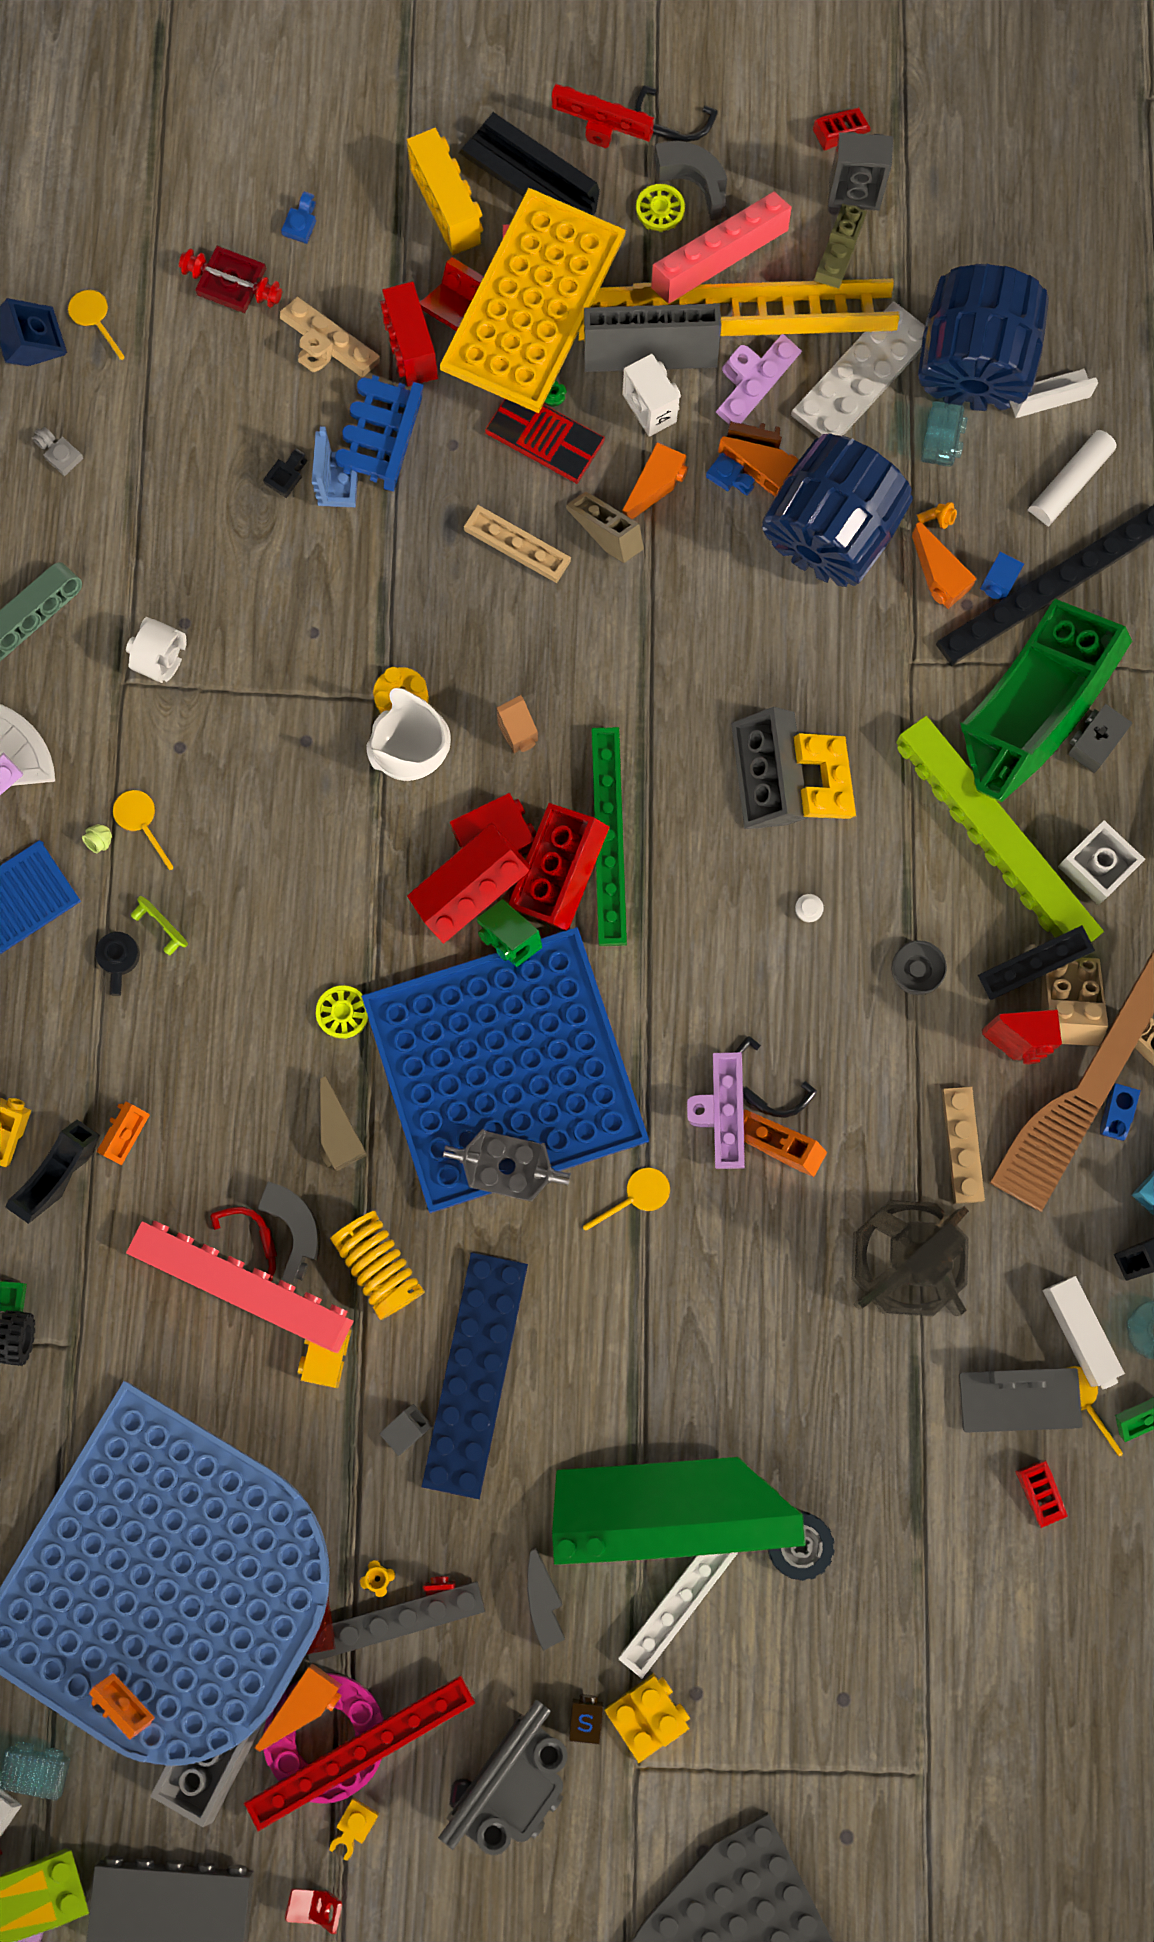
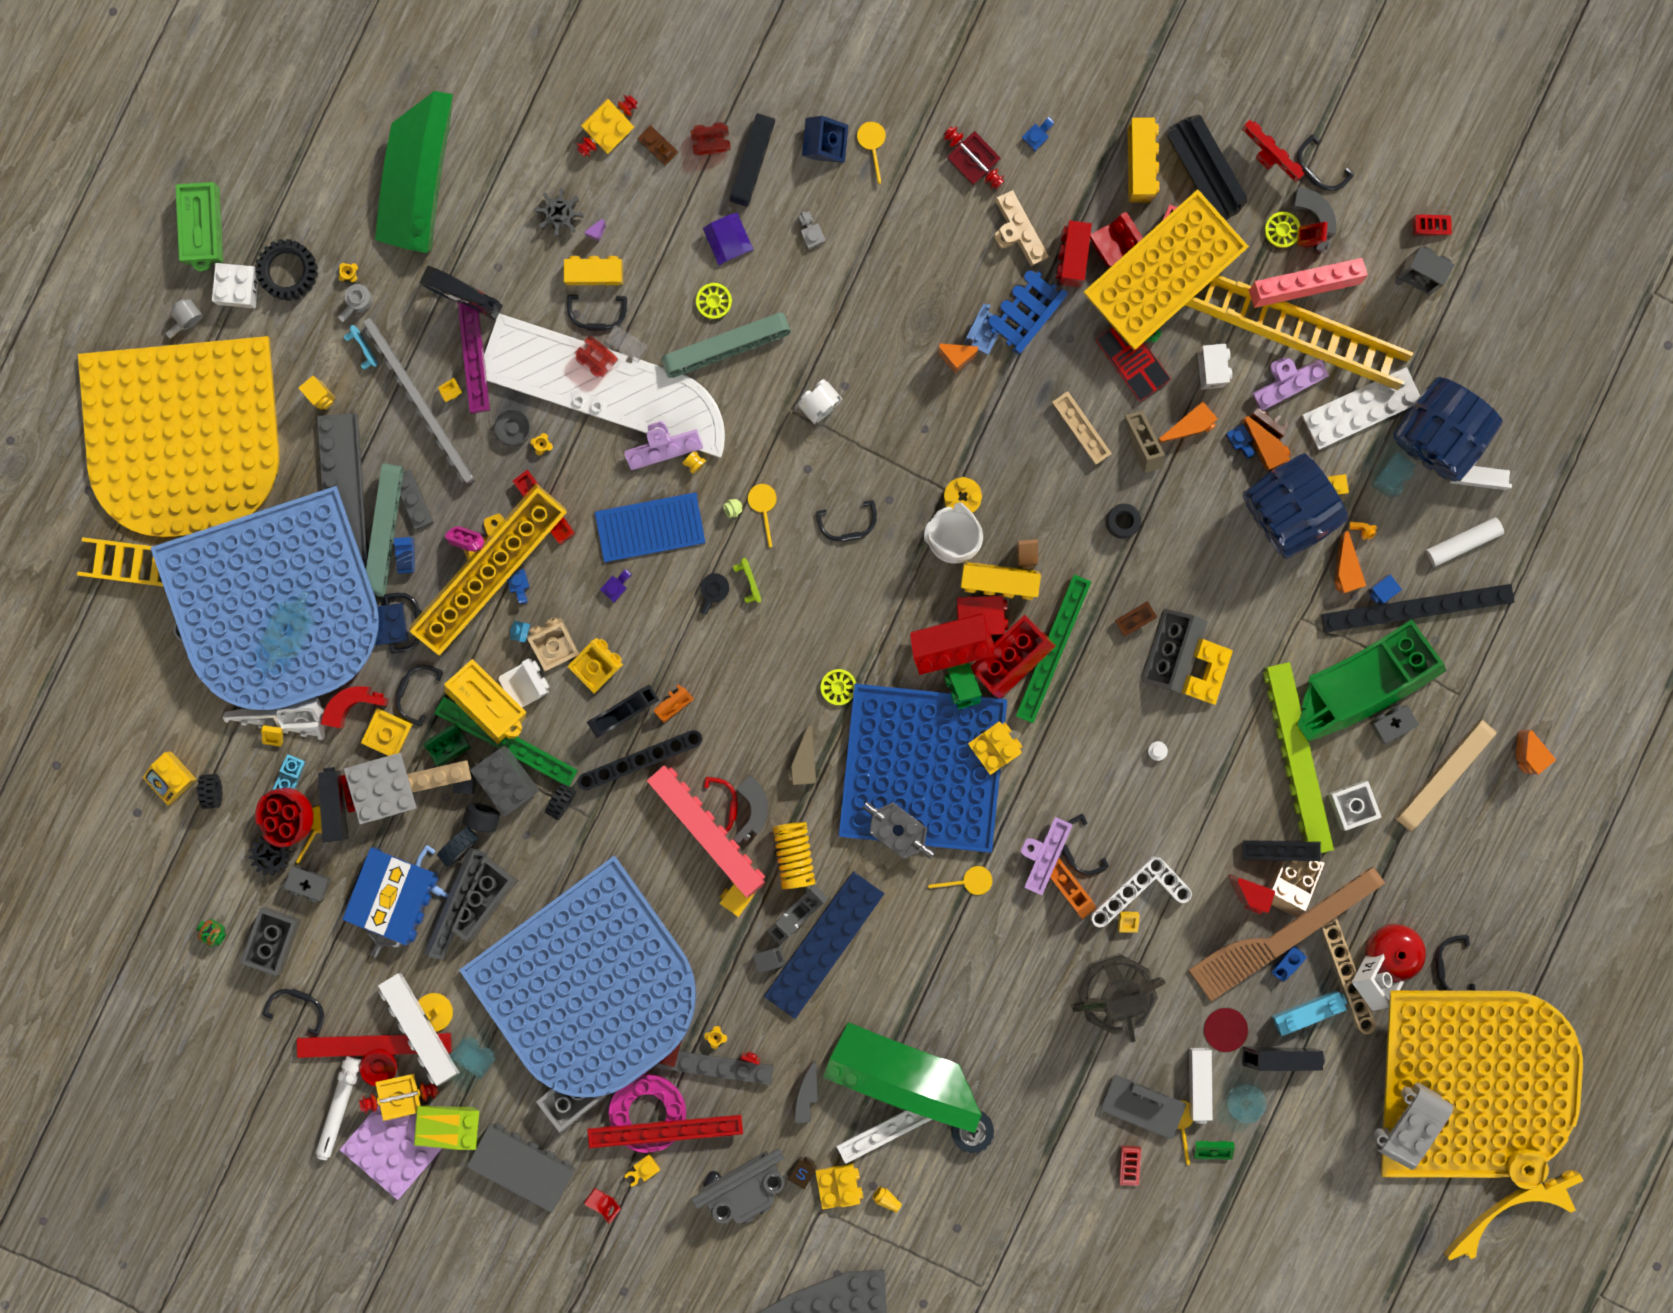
camera: 30 degrees right, 10 degrees up
(20, 800) = (694, 462): none -> yellow wheel
(93, 1235) = (631, 762): none -> black beam
(121, 1706) = (541, 1045): orange plate -> none
(273, 808) = (850, 536): none -> black piece
(285, 476) = (950, 314): black plate -> none
(306, 1702) = (645, 1090): orange slope -> none
(312, 517) = (957, 355): none -> orange slope
(417, 1346) = (797, 914): none -> dark grey arch
(496, 772) = (1000, 579): none -> yellow slope
(590, 995) = (995, 747): none -> yellow plate
(625, 618) = (1126, 509): none -> black tyre
(673, 333) = (1232, 328): dark grey brick -> none
(699, 190) = (1312, 234): none -> red slope
(699, 748) = (1136, 618): none -> reddish brown plate
(723, 1704) = (886, 1199): none -> yellow cone
(840, 246) = (1389, 314): olive slope -> none
(867, 1100) = (1137, 888): none -> white beam
(878, 1152) = (1128, 921): none -> yellow plate
(919, 967) = (1208, 819): dark grey piece -> none
(963, 1145) = (1182, 940): tan plate -> none
(1080, 1242) = (1226, 1029): none -> dark red sticker

